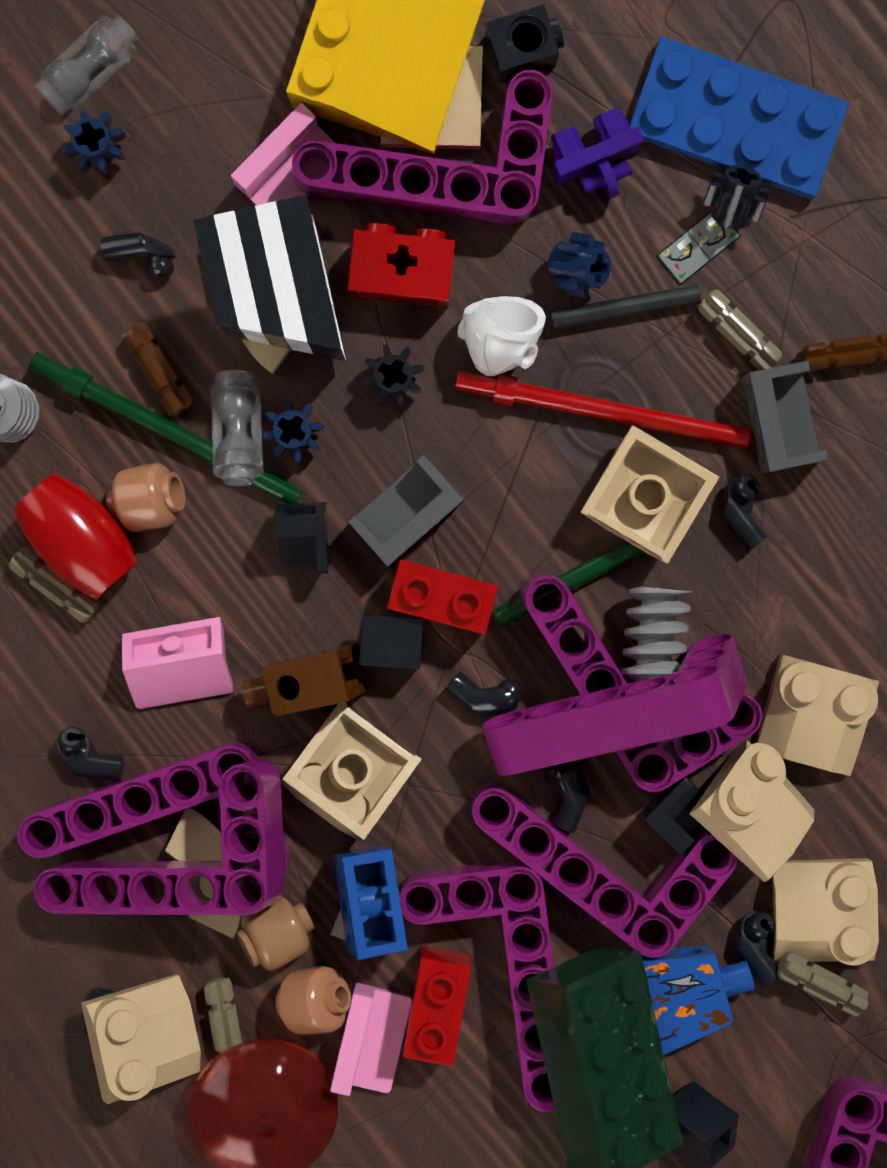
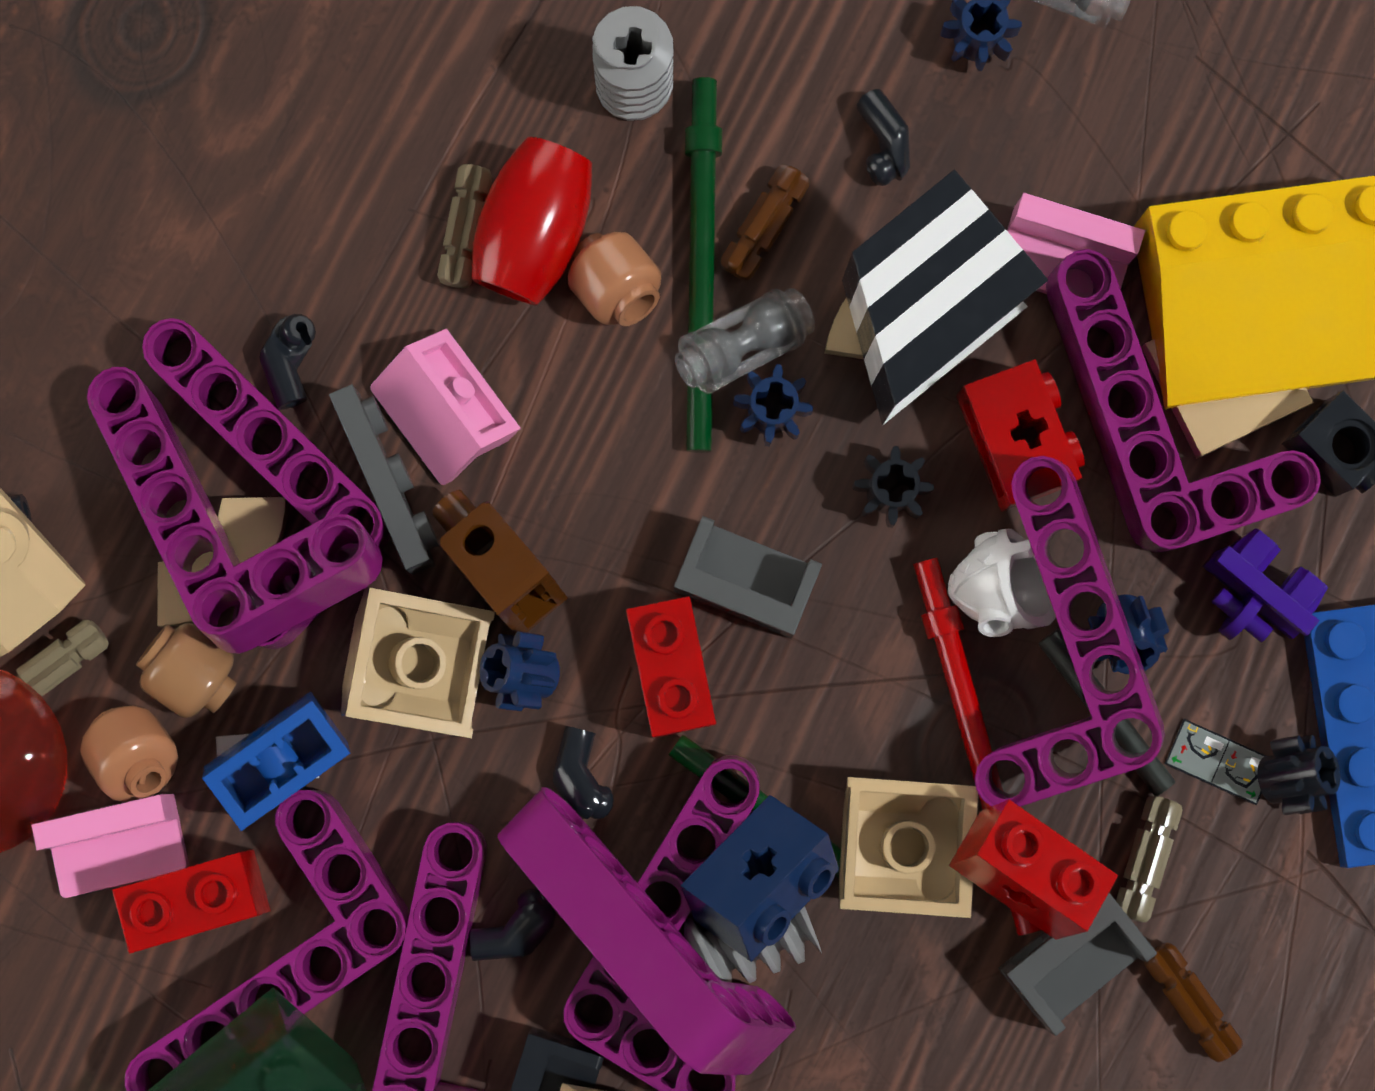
camera: 60 degrees right, 5 degrees down
(208, 729) = (386, 478): none -> dark grey plate
(303, 534) = (662, 474): black panel -> none
(391, 641) = (590, 635): black panel -> none
(391, 702) = (519, 671): none -> dark blue gear
(574, 302) = (1084, 646): none -> magenta beam
(620, 608) = (761, 878): none -> dark blue brick
(710, 418) = (1033, 870): none -> red brick
(738, 507) = (943, 961): black arm -> none

